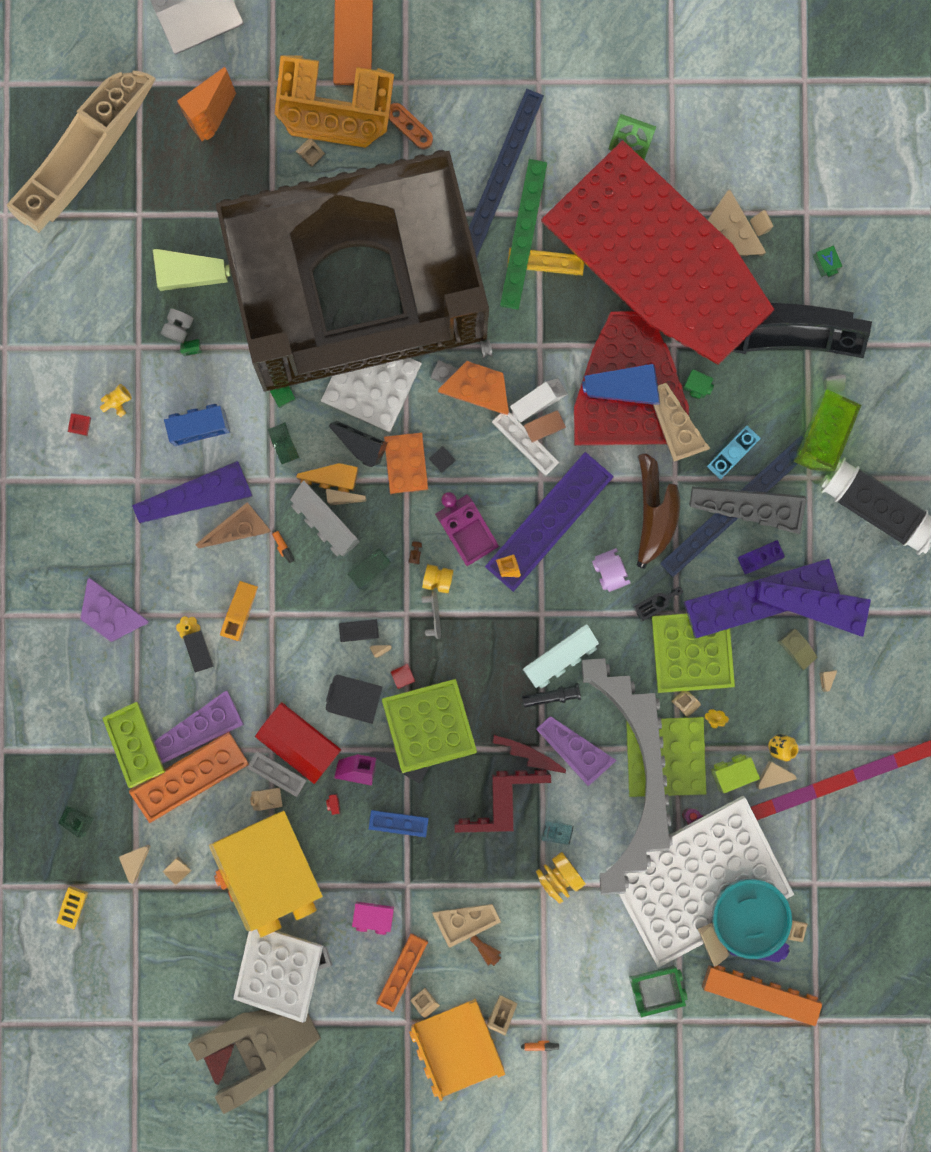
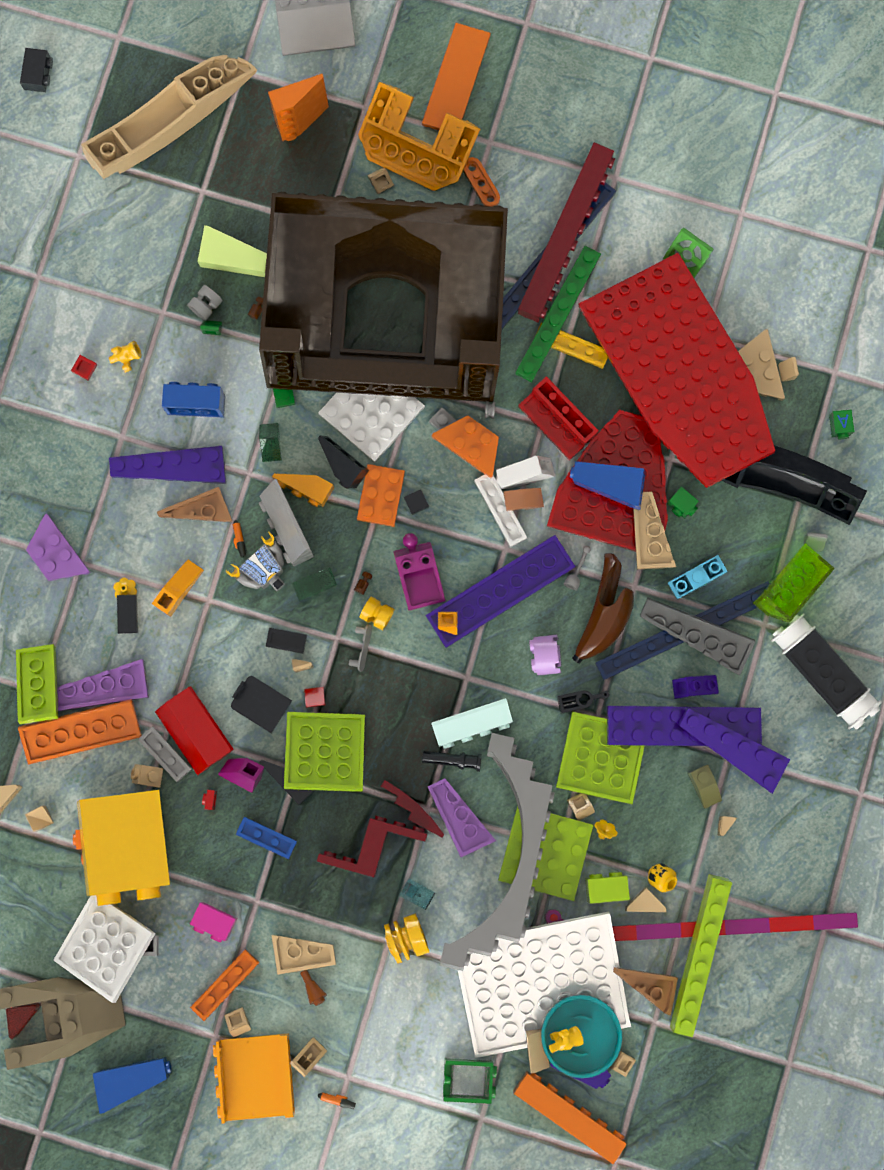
camera: 20 degrees right, 5 degrees down
(229, 317) = (256, 310): none -> reddish brown piece
(314, 567) = (262, 567): none -> torso
(337, 497) = (306, 508): tan slope -> none
(339, 1089) = (124, 1082): none -> blue slope
(508, 150) = (565, 233): none -> dark red brick
(554, 337) = (558, 418): none -> red slope
(615, 490) = (572, 581): none -> light grey hinge
(739, 926) = (566, 1039): none -> yellow piece
(804, 851) = (654, 987): none -> medium nougat wing
(840, 809) = (700, 955): none -> lime brick

